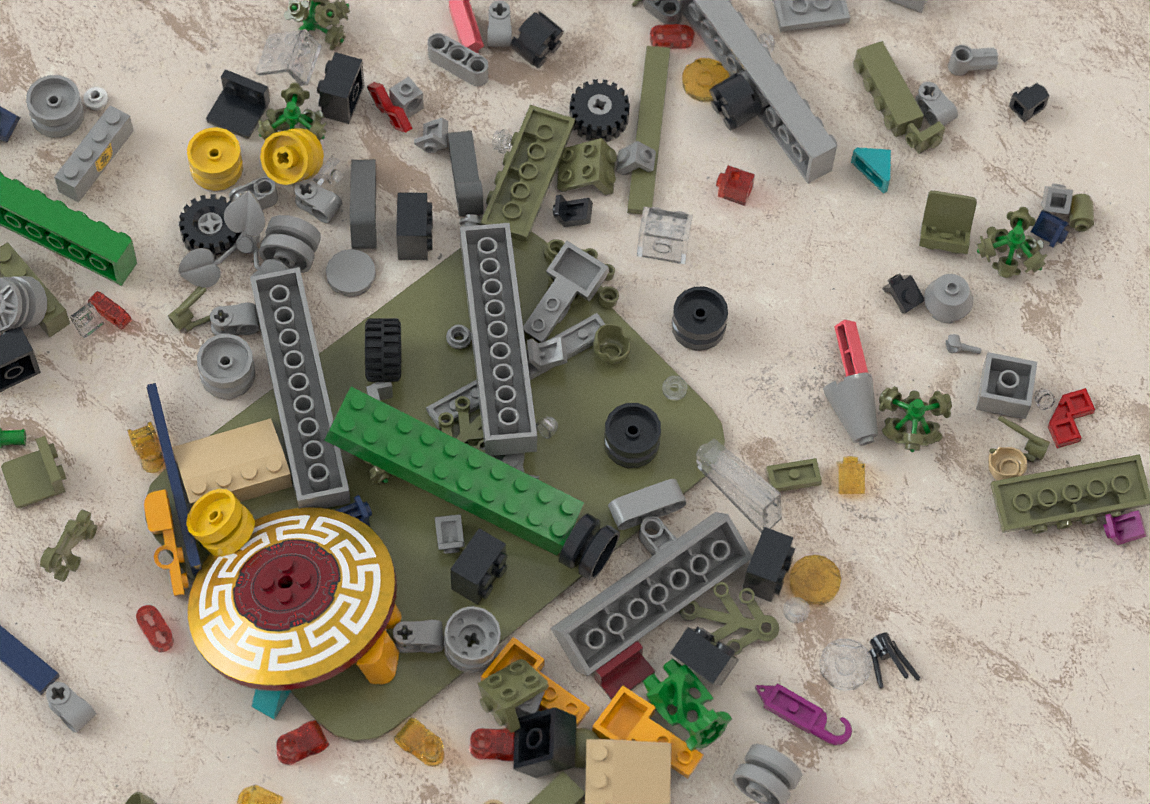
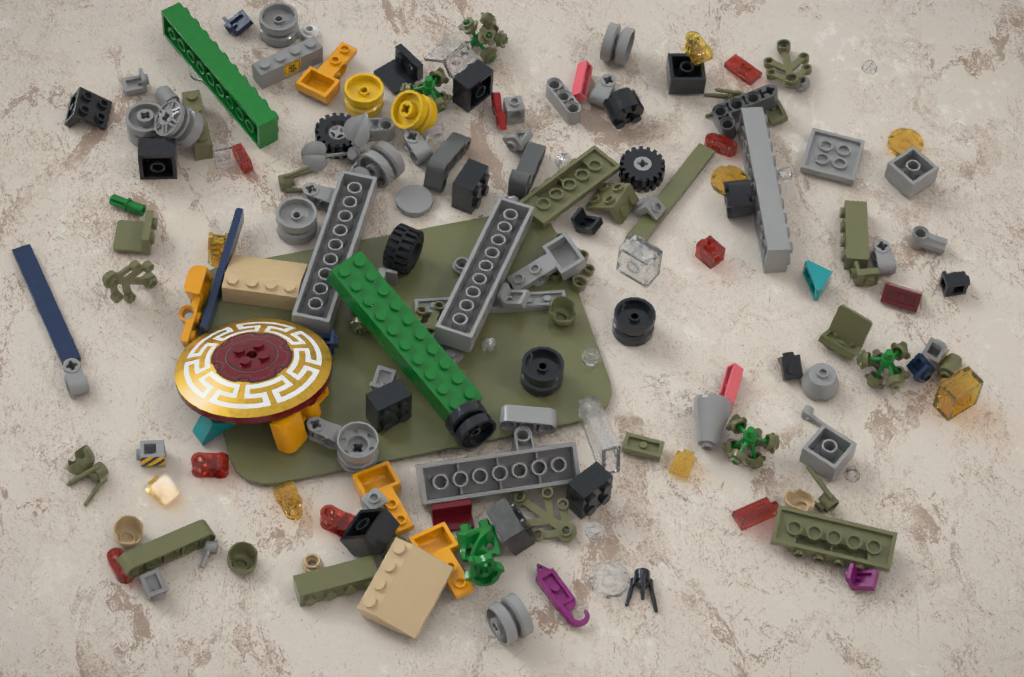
camera: 25 degrees right, 10 degrees down
(151, 163) = (322, 82): none -> light orange plate
(159, 625) = (162, 357): clear red beam -> none
(220, 522) = (234, 307): yellow wheel -> none
(225, 754) = (151, 453): none -> light grey brick
(509, 689) = (364, 487): olive bracket -> none
(815, 579) = (619, 518): clear yellow tile -> none
(962, 500) = (755, 513): none -> clear red panel
(980, 144) = (901, 296): none -> dark red panel
(1062, 424) = (869, 487): red tile -> none
(1109, 242) = (957, 393): none -> clear yellow brick

